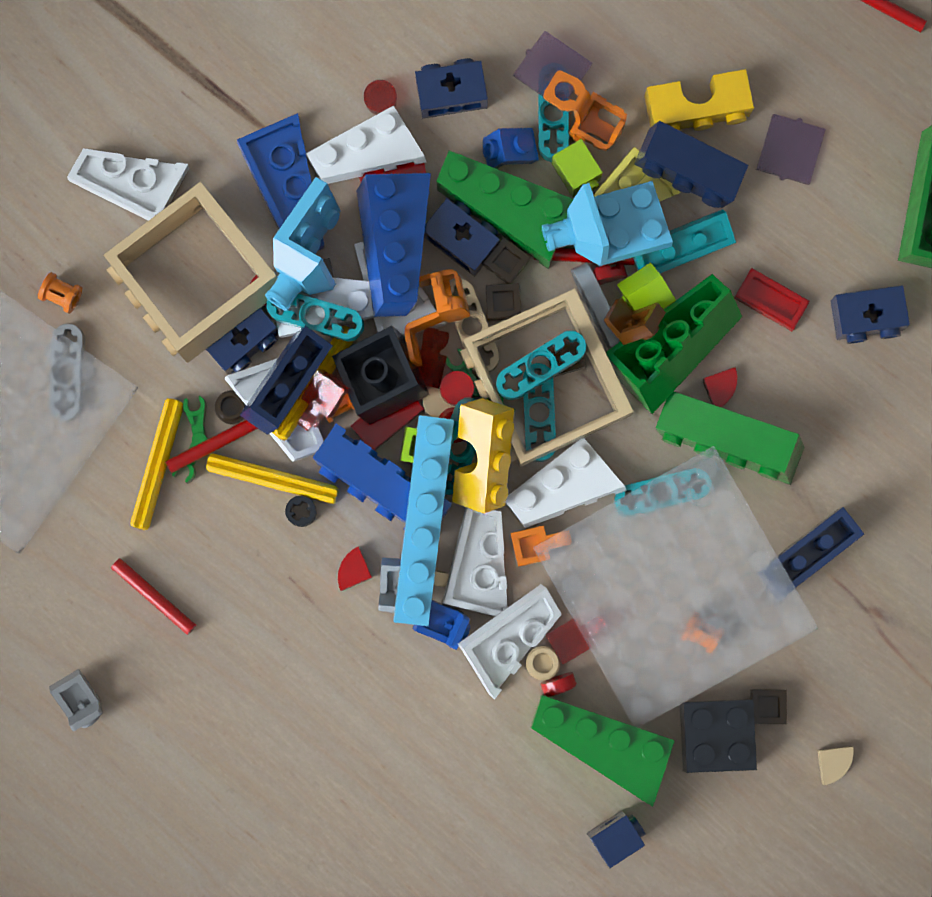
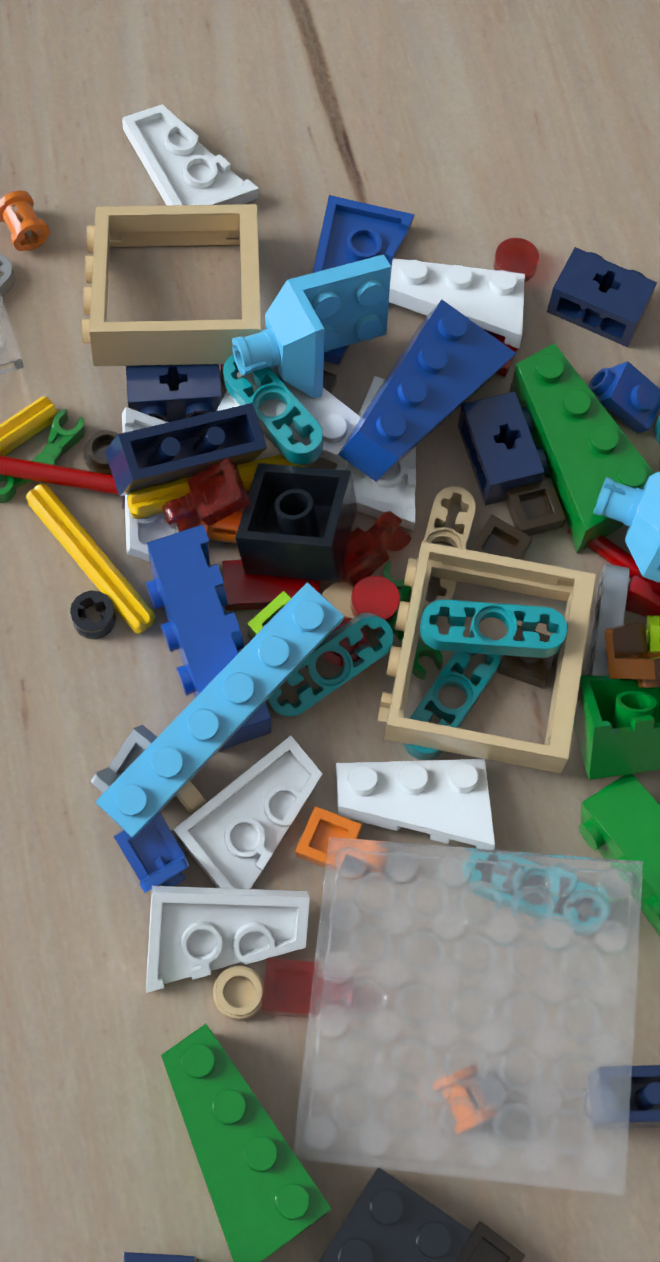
camera: 30 degrees right, 15 degrees down
(353, 570) = (99, 721): red tile -> none
(448, 307) = (430, 501): orange piece -> none
(490, 431) = (375, 663): yellow arch -> none
(558, 684) = (238, 1031): red tile -> none

